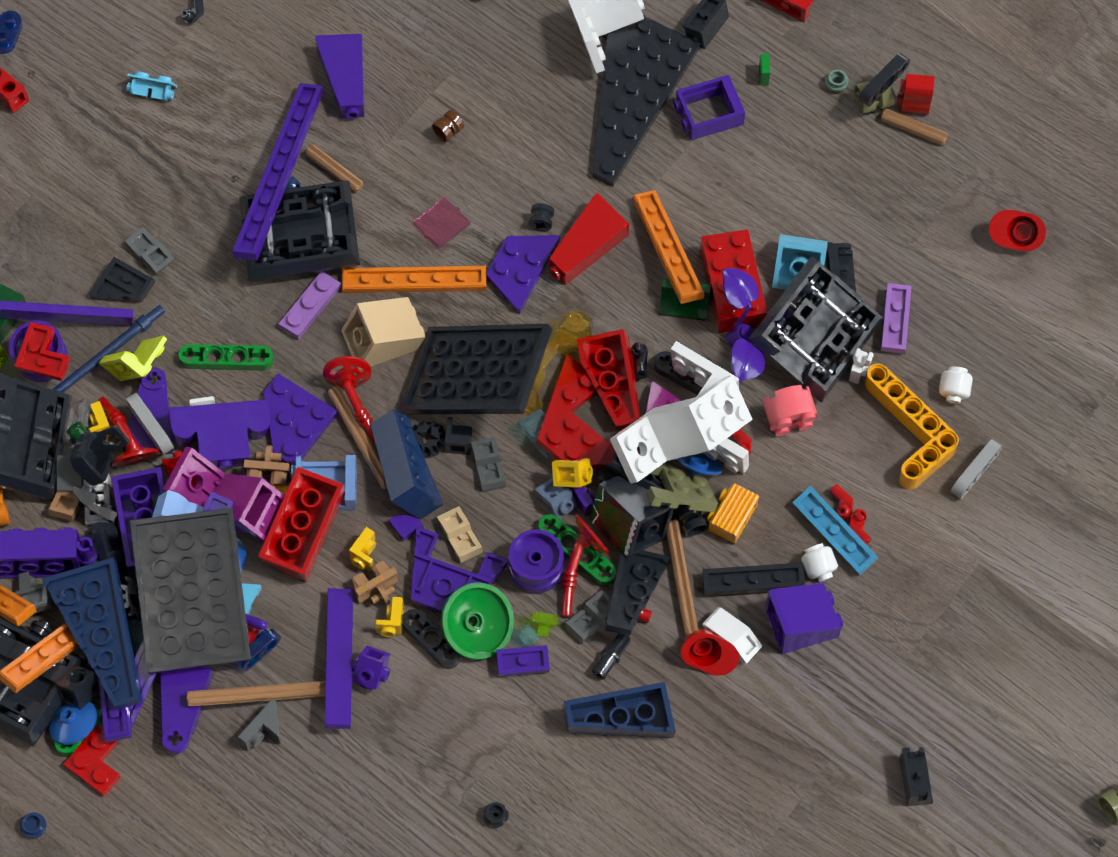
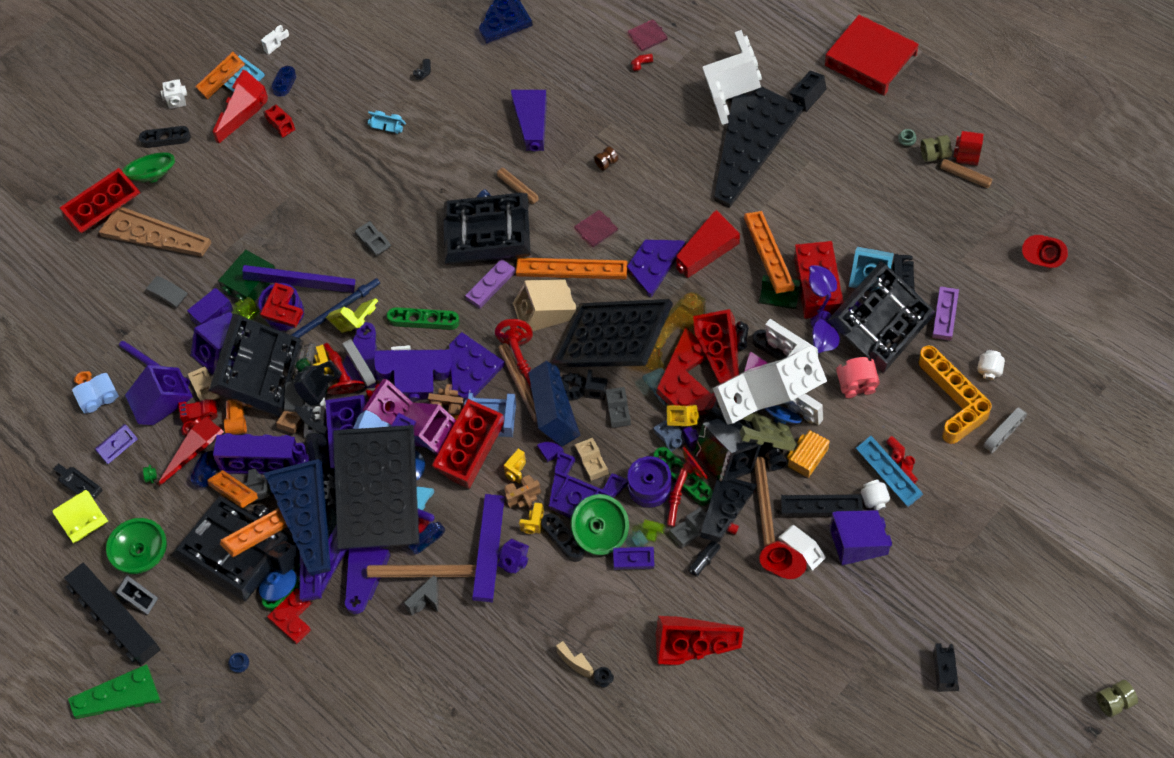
camera: 10 degrees right, 5 degrees down
(122, 283) = (349, 261): black wing -> none
(277, 172) = (473, 184): dark purple plate -> none
(464, 800) = (577, 663): none -> tan slope
(541, 217) = (672, 227): black wheel -> none
(599, 759) = (687, 638): none -> red wedge
(626, 712) = (710, 602): dark blue wedge -> none
(704, 90) = (805, 140): dark purple window -> none
(743, 440) = (815, 394): red arm -> none
(764, 69) = (851, 127): green tile -> none
(861, 364) = (915, 347): white plate -> none
(884, 79) = (943, 135): black beam -> none

